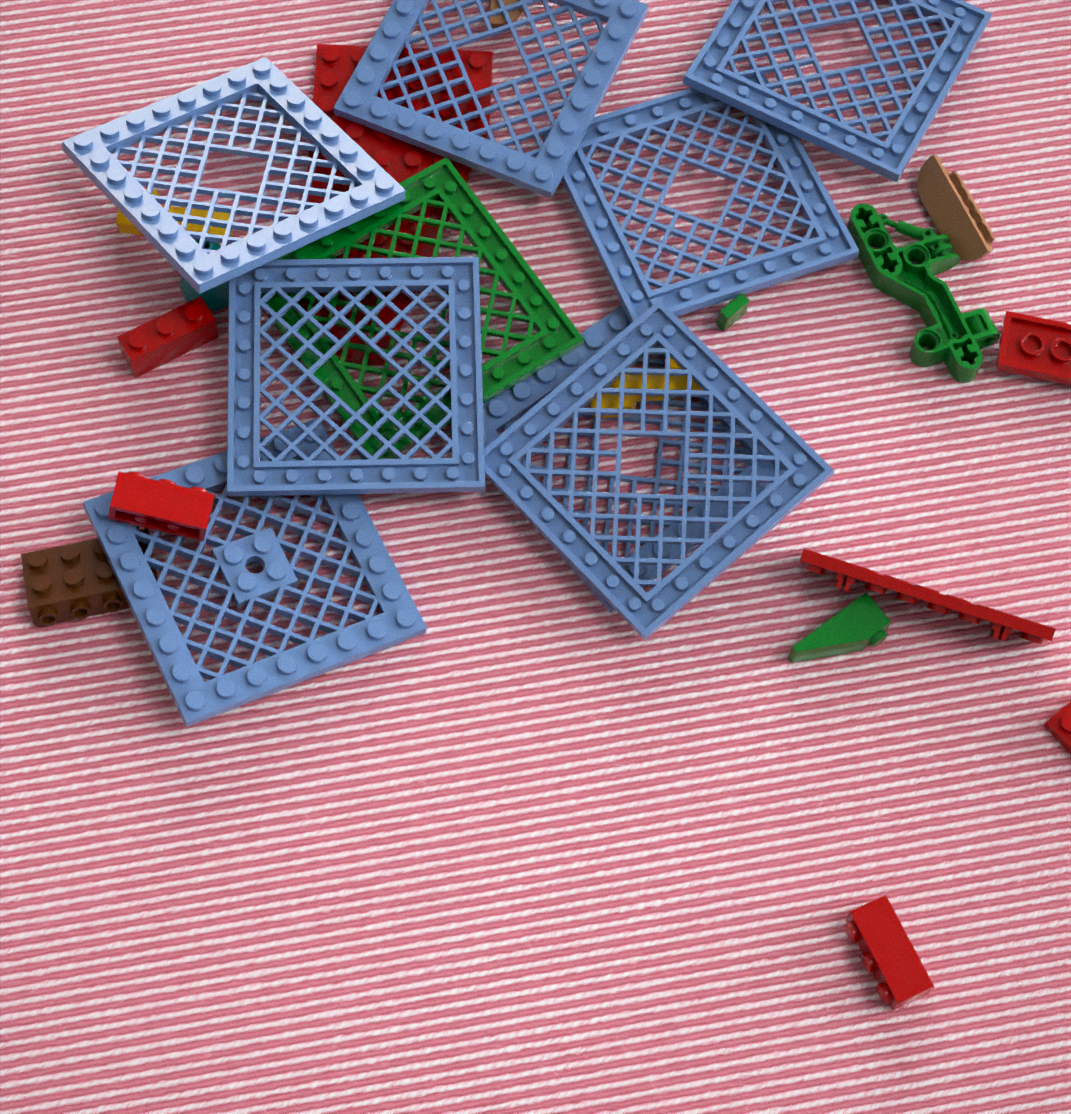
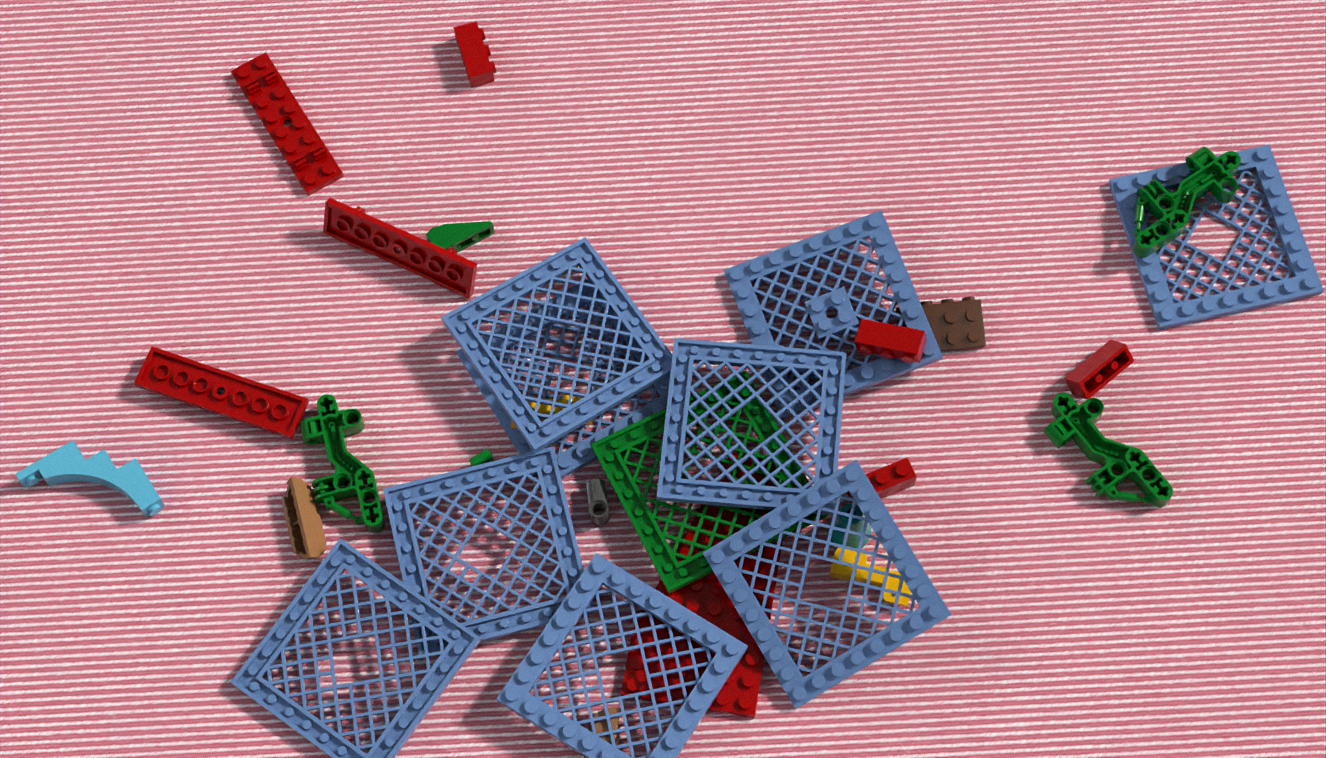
camera: 165 degrees left, 0 degrees up
(561, 277) = (597, 501): none -> dark grey piece

